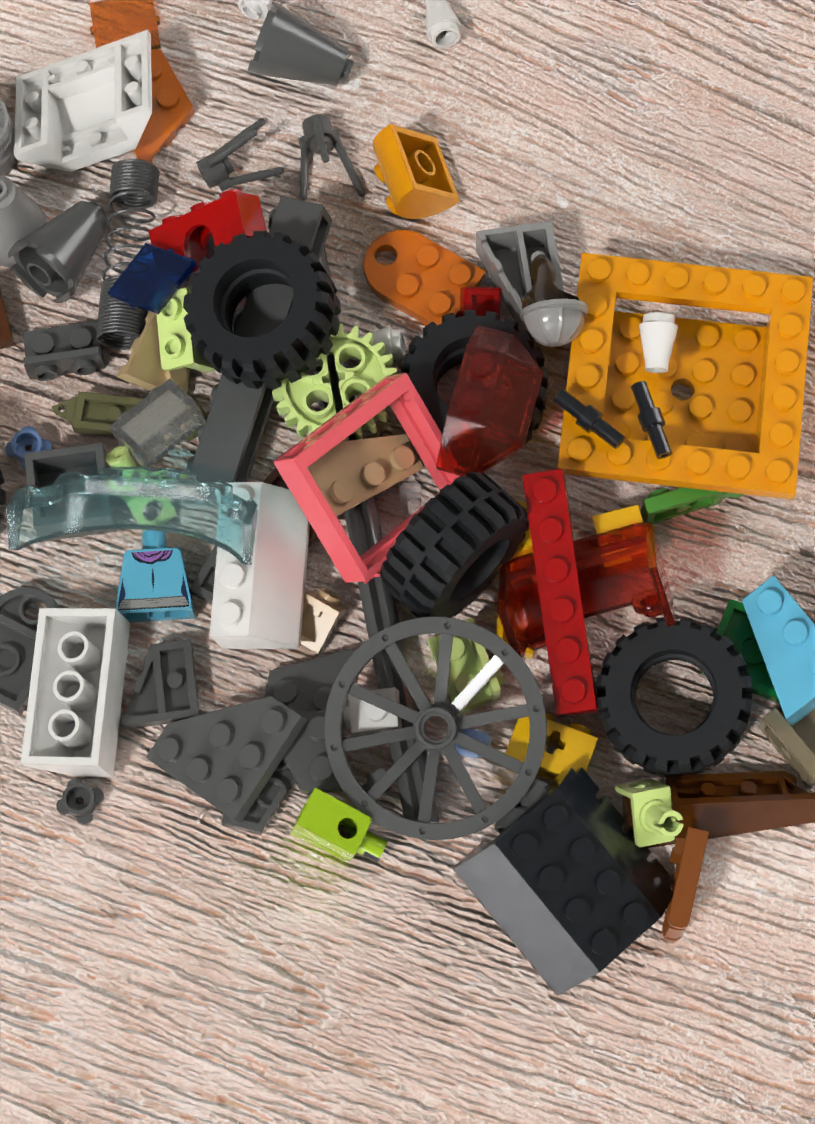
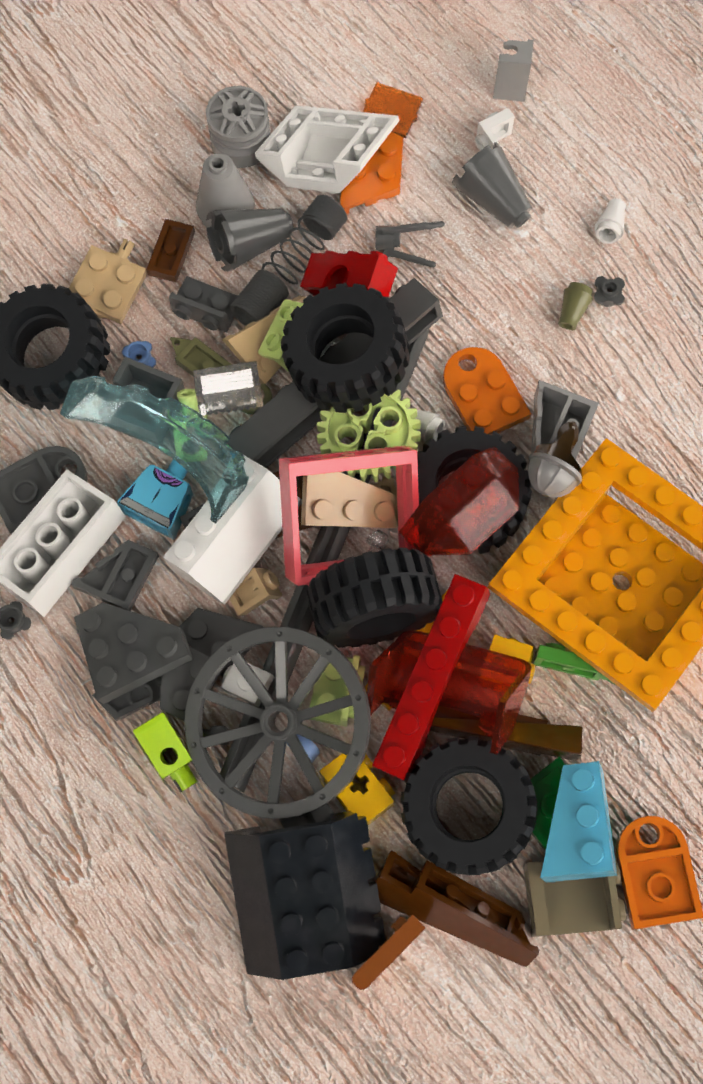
camera: 30 degrees right, 0 degrees up
(152, 278) = (288, 285): clear blue piece -> none
(320, 139) = (472, 256): dark grey plant -> none
(413, 173) = (523, 315): light orange brick -> none
(458, 130) = (574, 304): none -> olive cone
(480, 300) = (514, 432): red tile -> none
(484, 106) = (609, 298): none -> dark grey plate
(589, 419) = (532, 561): black bar -> none
(651, 419) = (578, 589): black bar -> none
(651, 811) = (397, 880): yellowish green bracket -> none
(657, 340) = (621, 531): white cone -> none
(691, 597) = (529, 734): none -> reddish brown wedge

